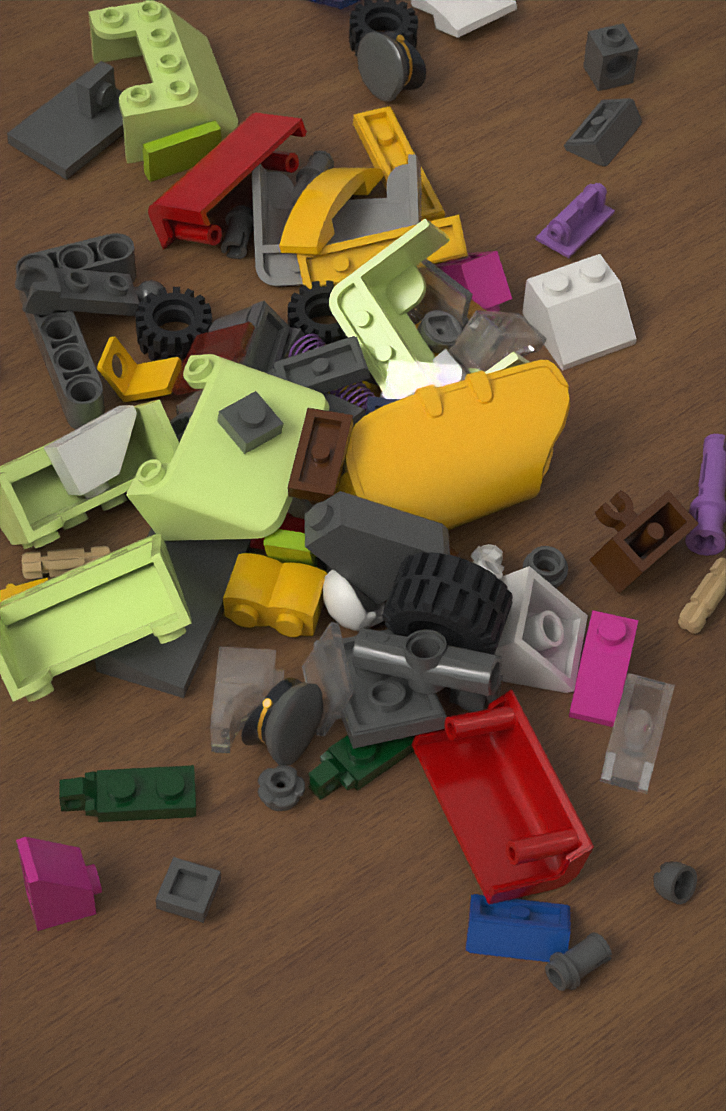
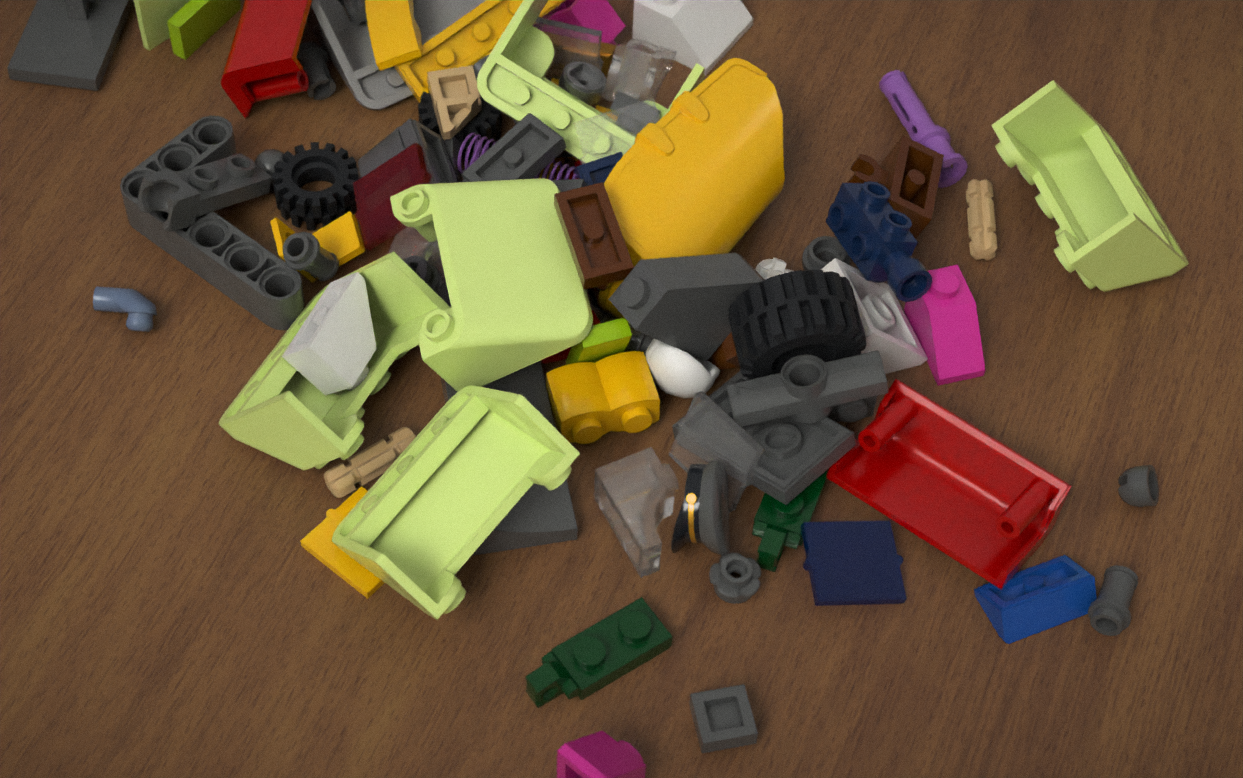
camera: 30 degrees left, 0 degrees up
(115, 373) = (304, 252): none -> dark grey pin
(250, 422) = (504, 233): dark grey plate -> none
(313, 306) = (454, 98): none -> tan slope
(383, 823) = (853, 563): none -> clear blue piece
(581, 568) = (878, 239): none -> dark blue brick
(637, 733) = (1023, 368): clear brick -> none

